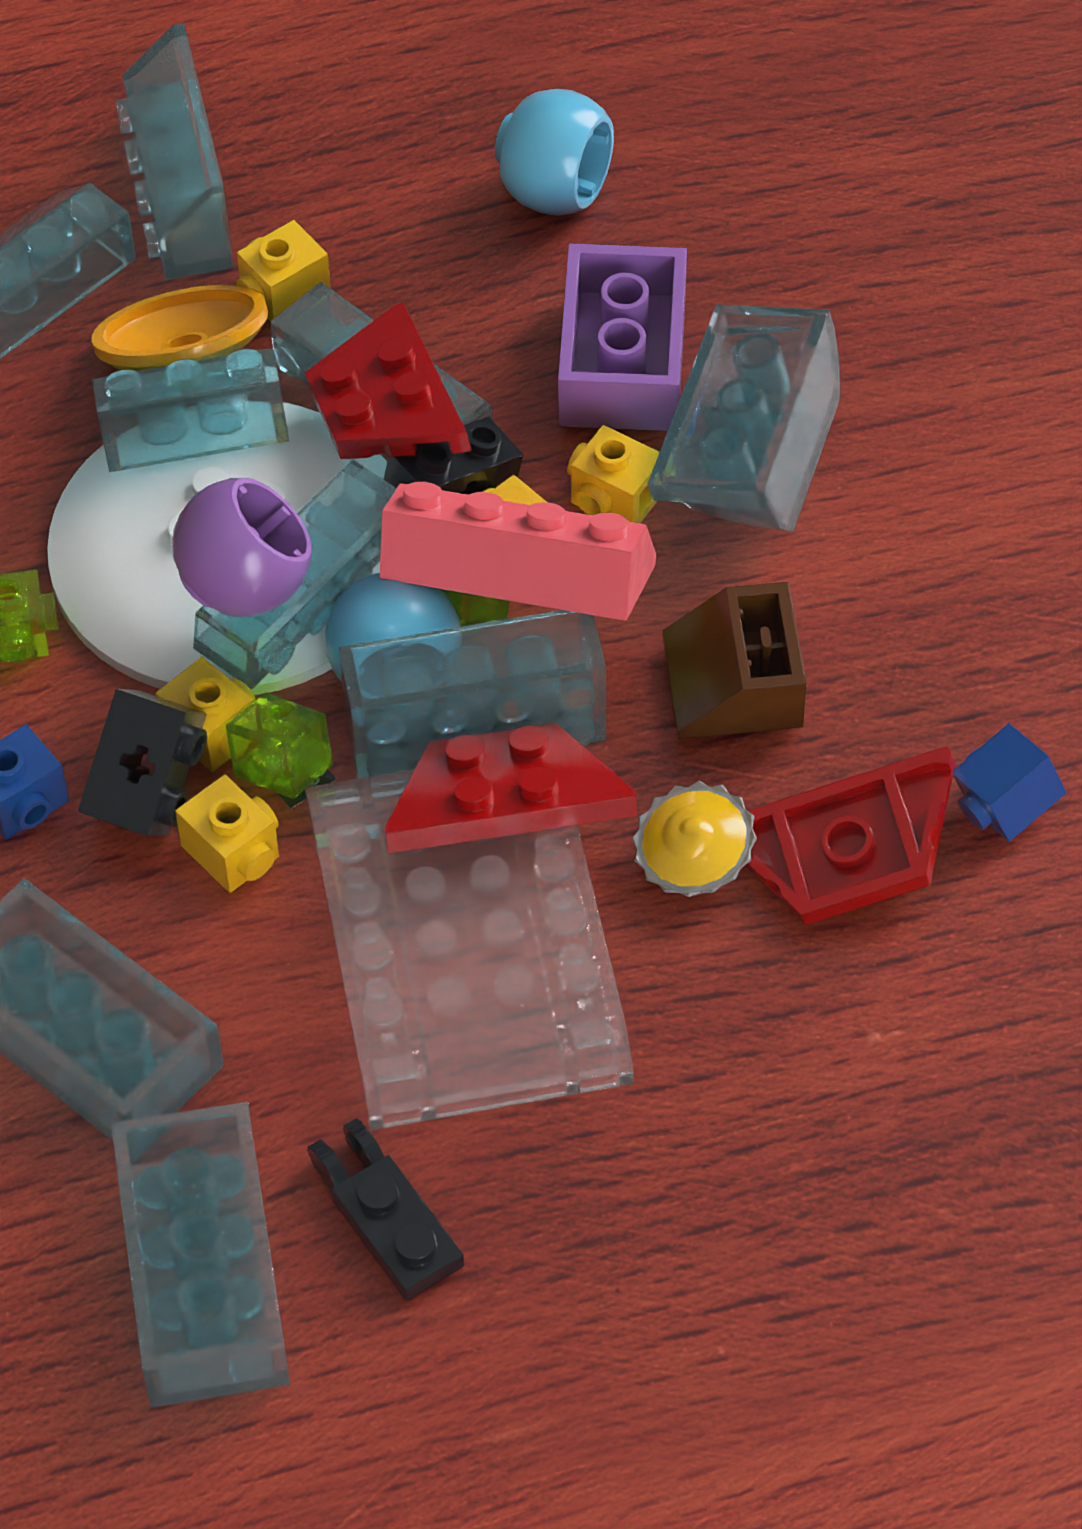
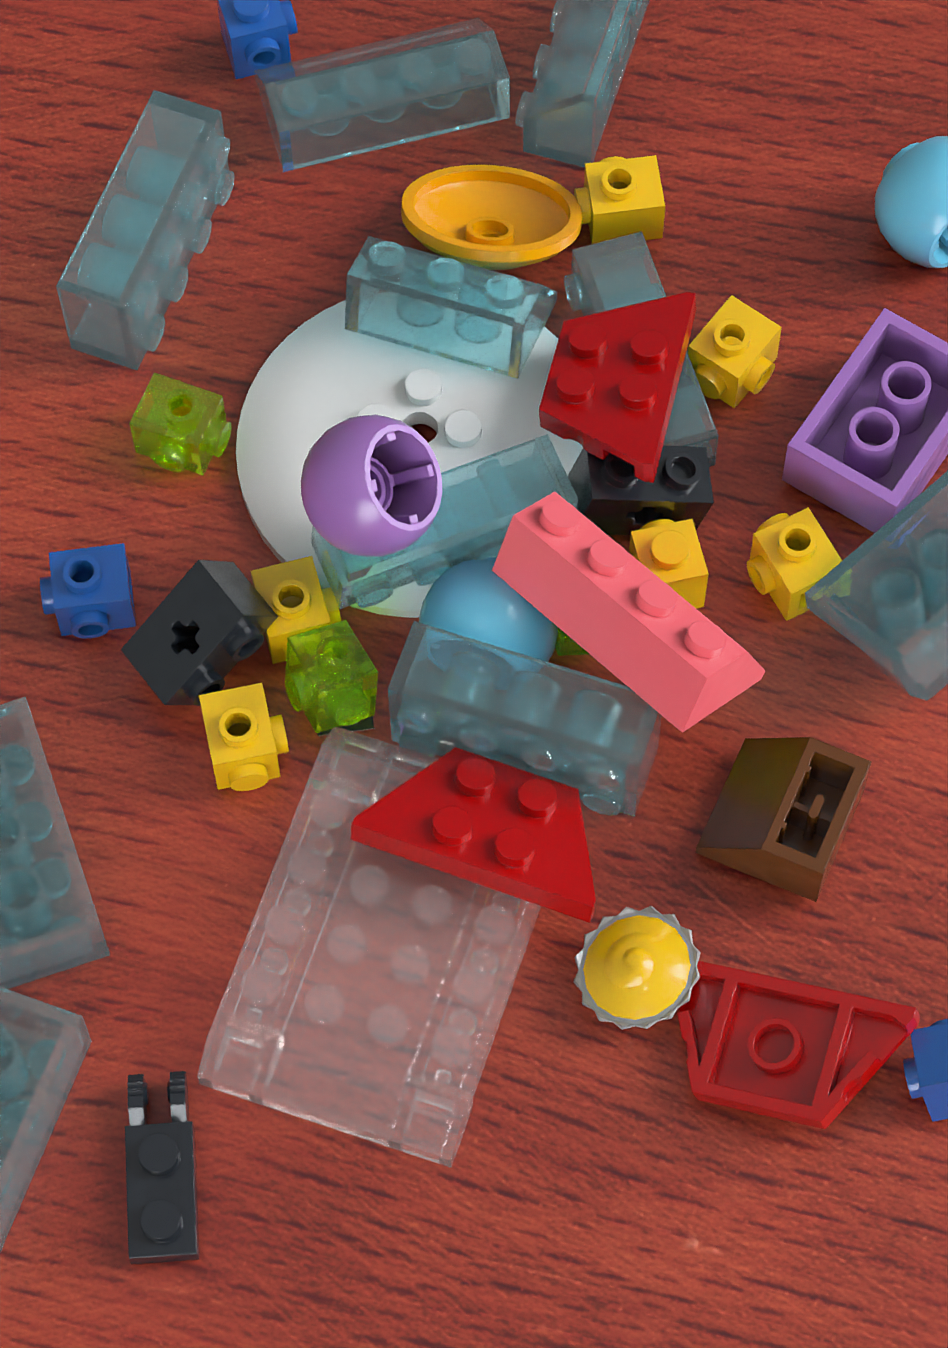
camera: 30 degrees right, 10 degrees up
(460, 339) = (735, 352): none -> yellow brick

